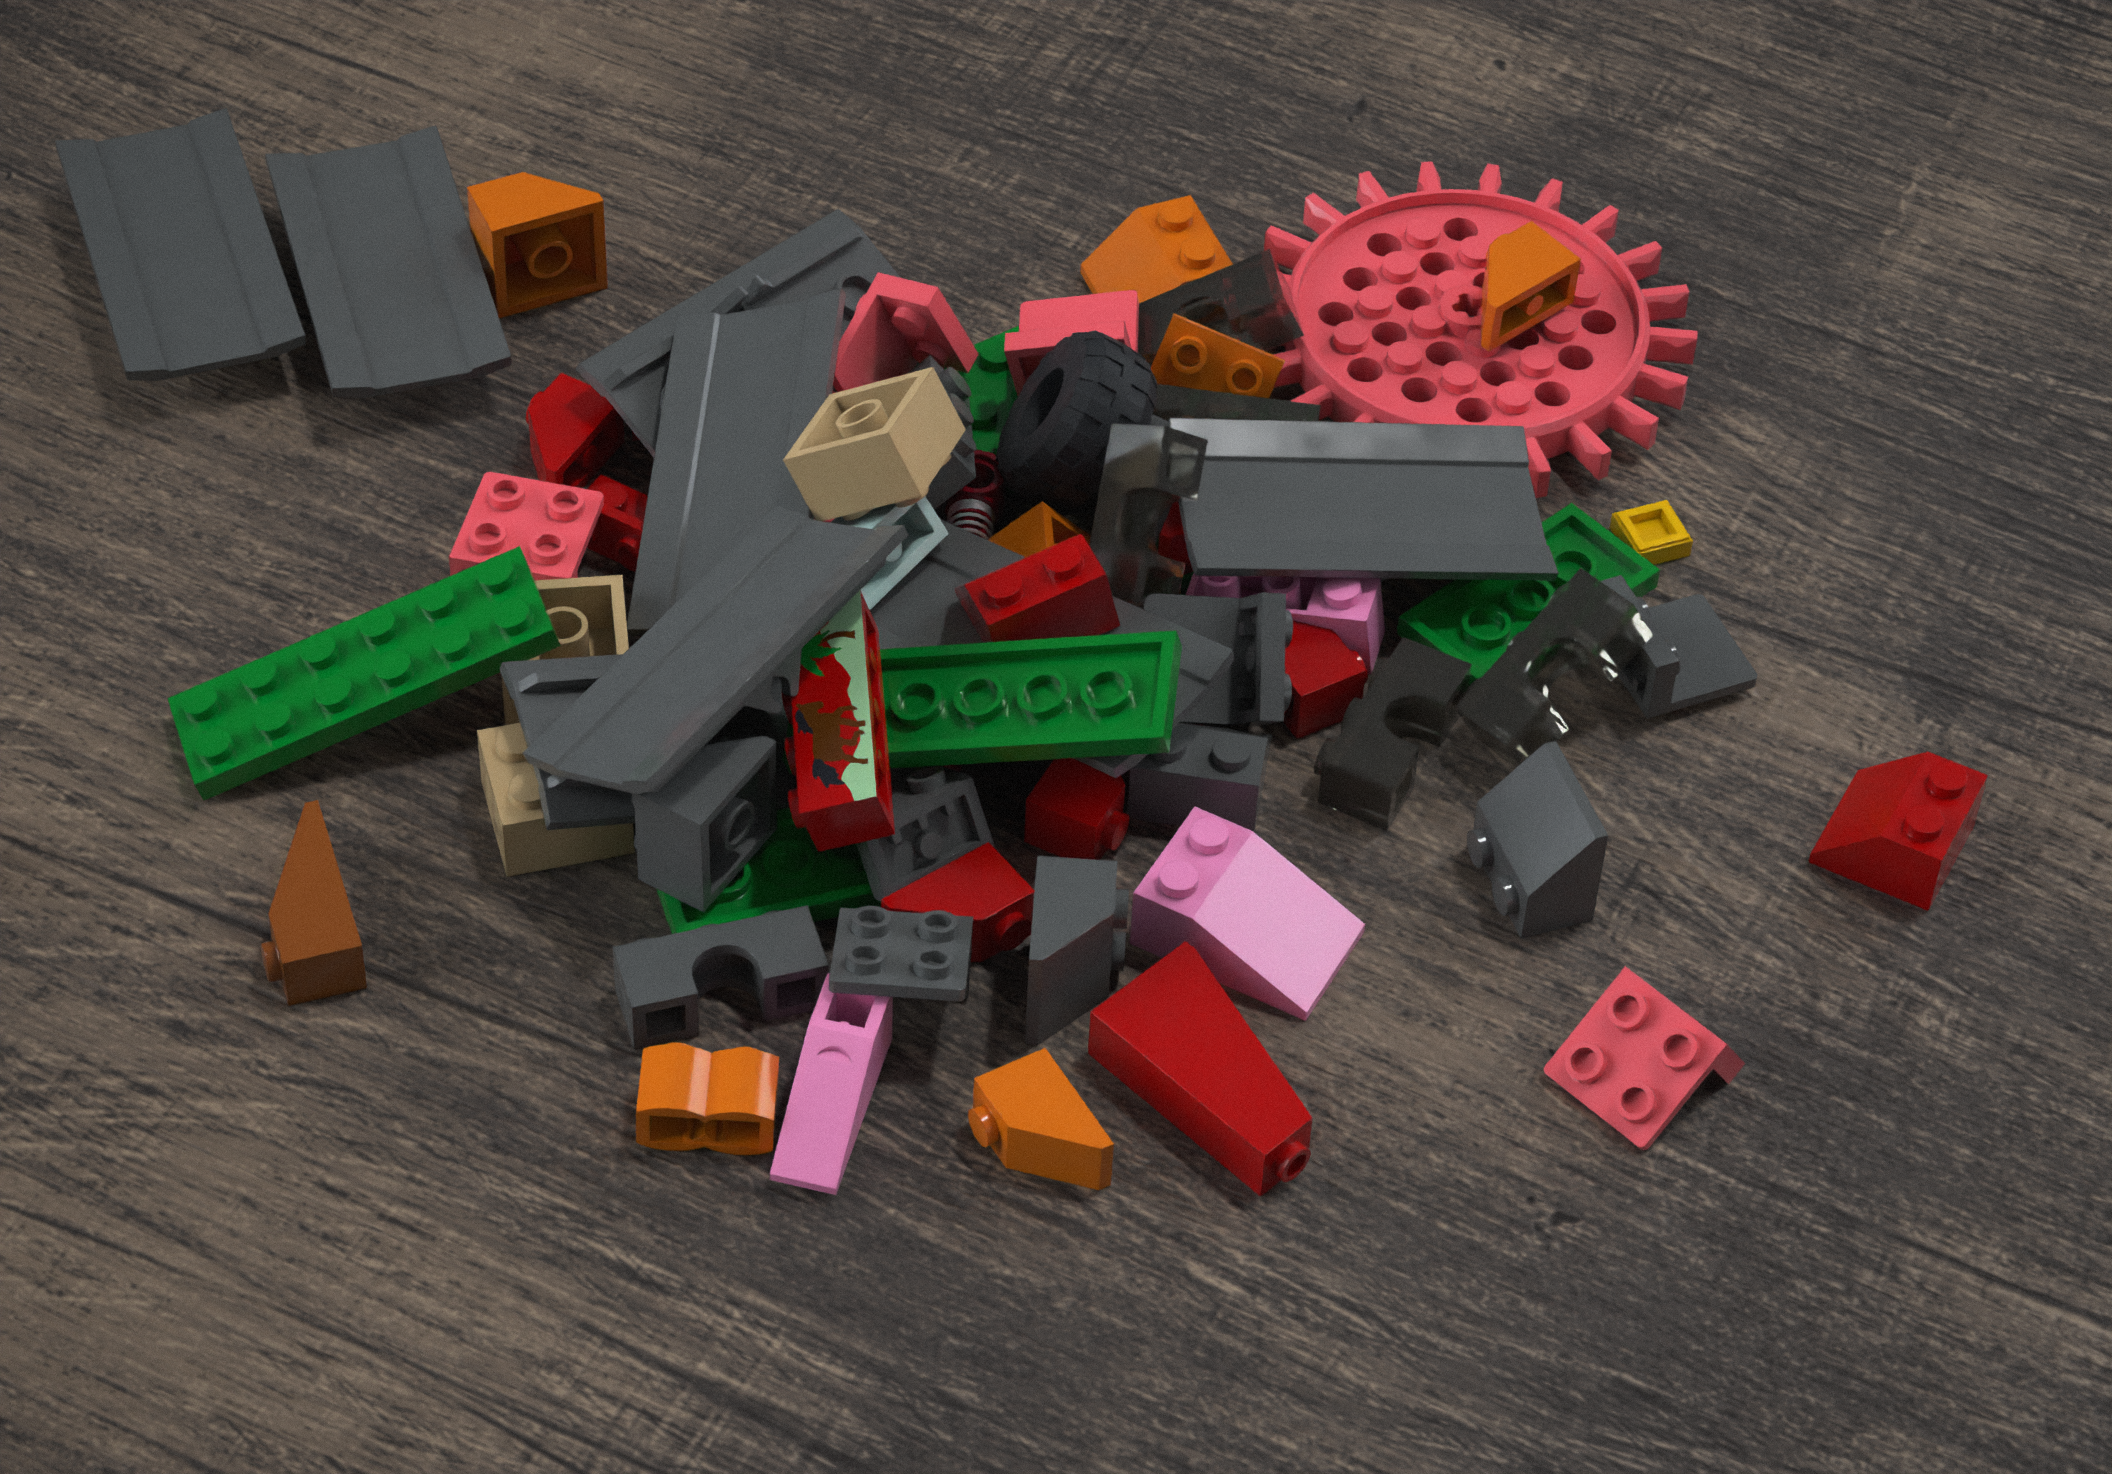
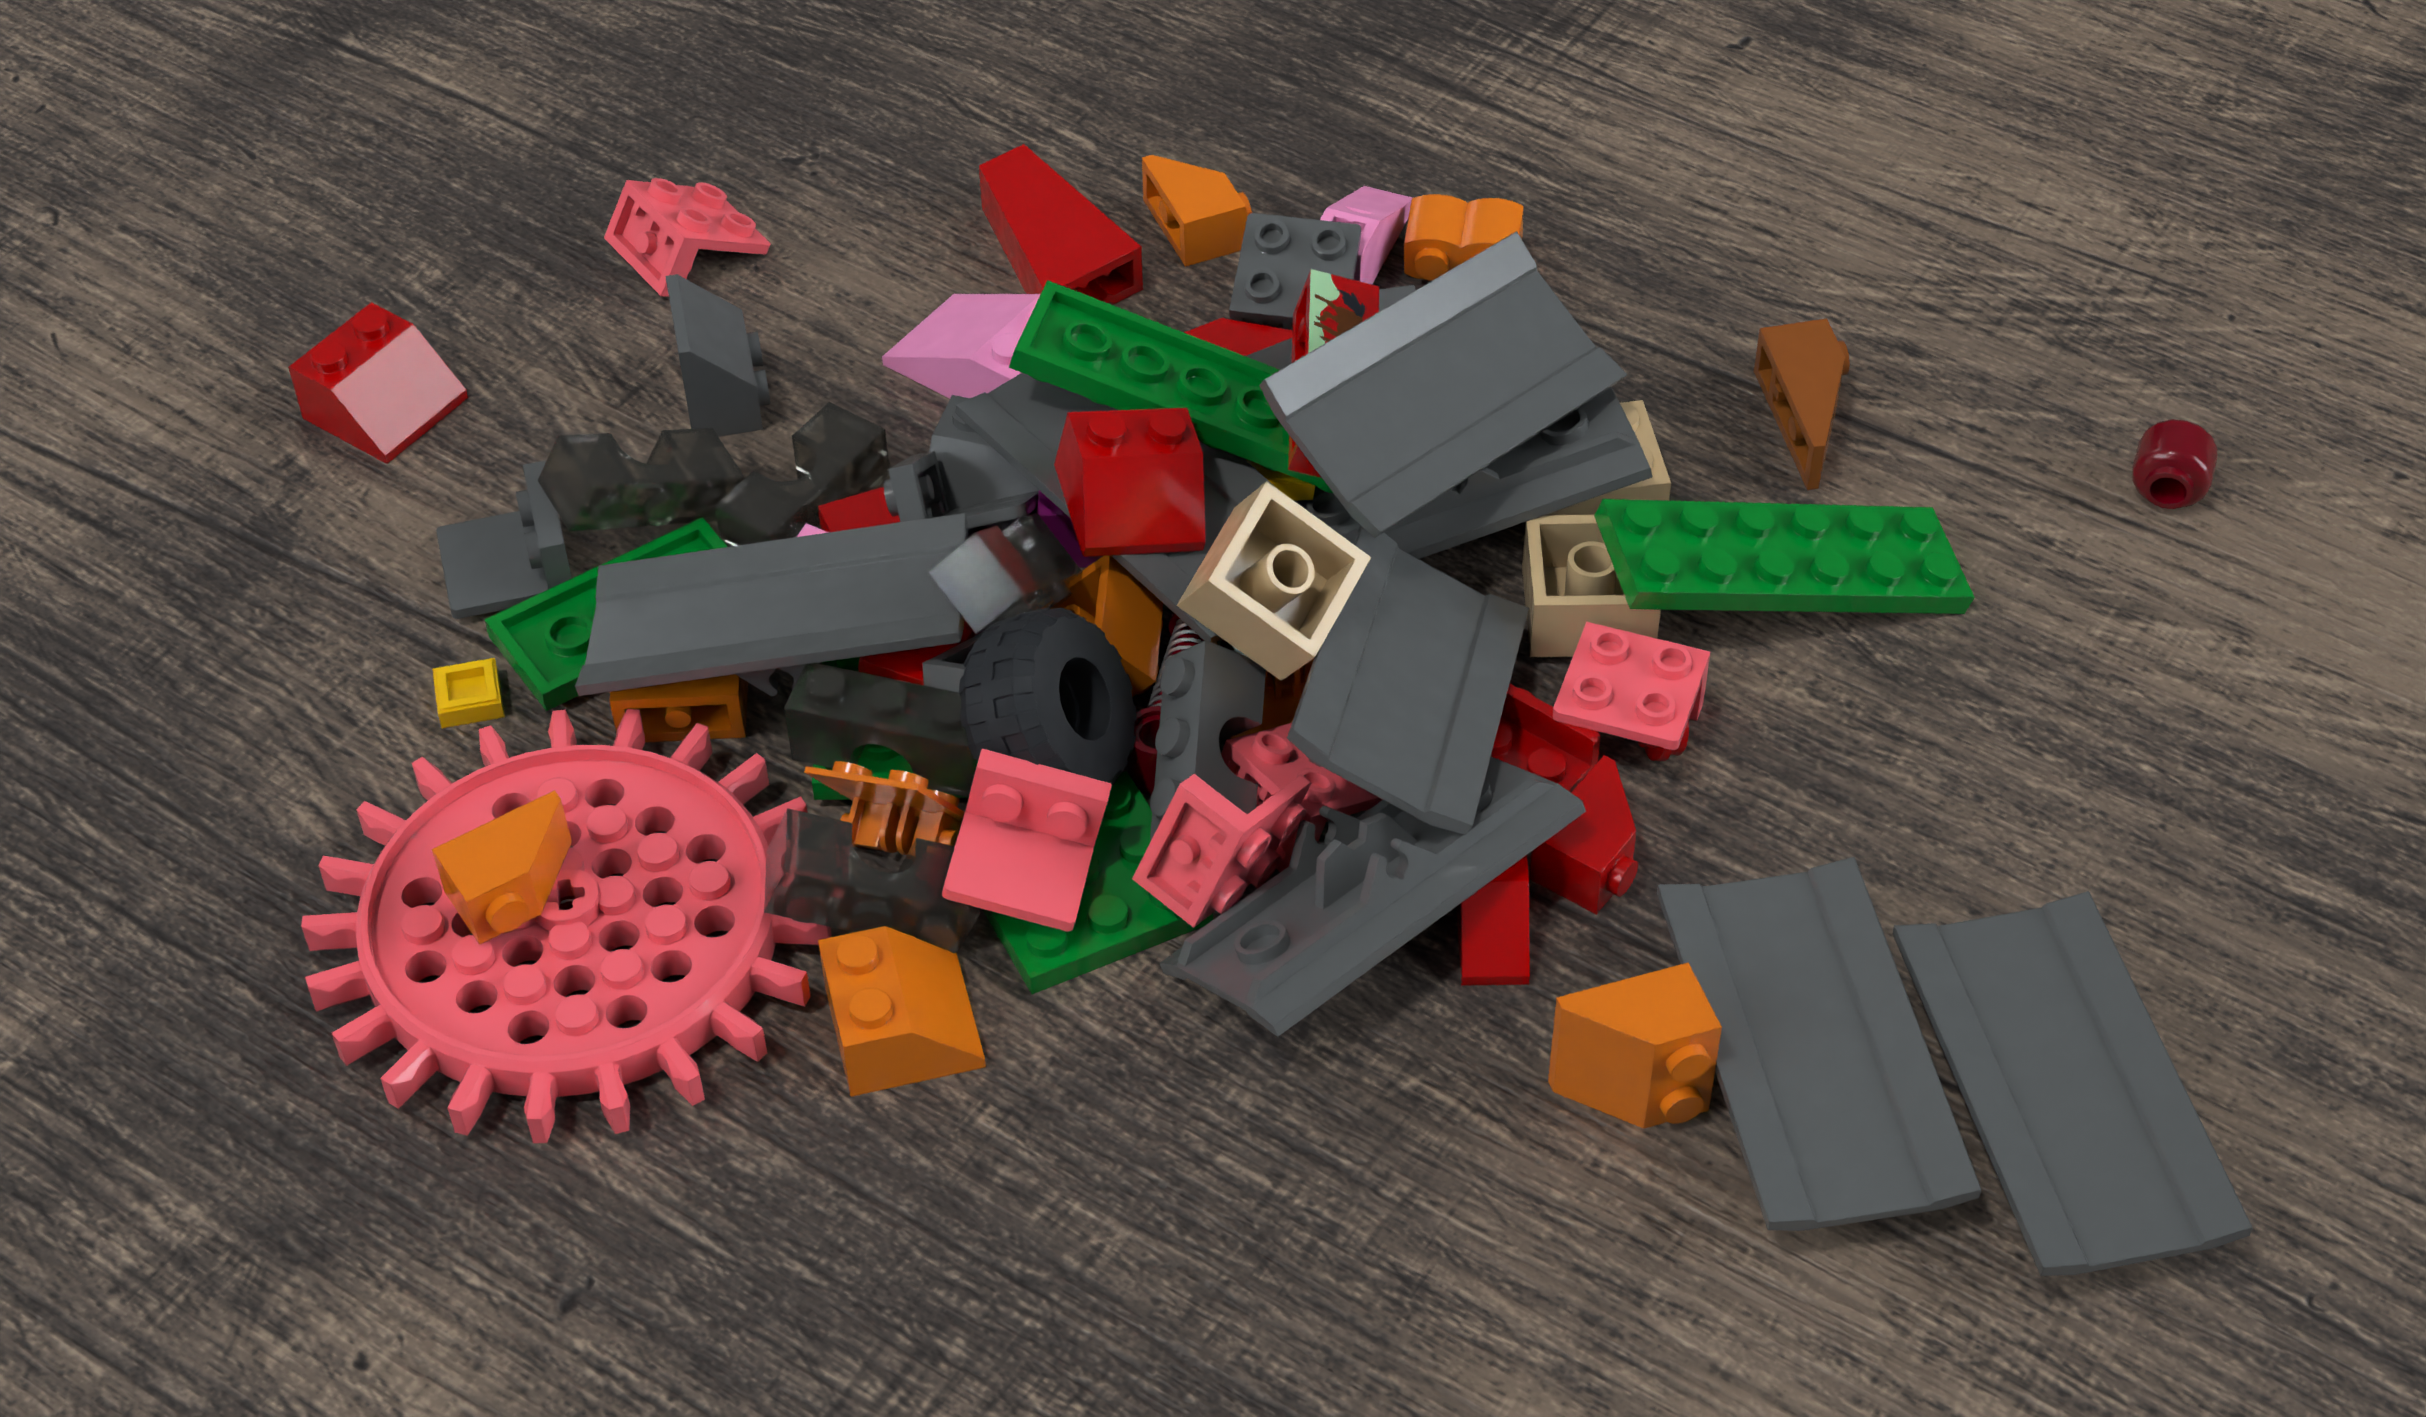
camera: 170 degrees left, 0 degrees up
(1072, 941) = (1152, 272): dark grey slope -> none

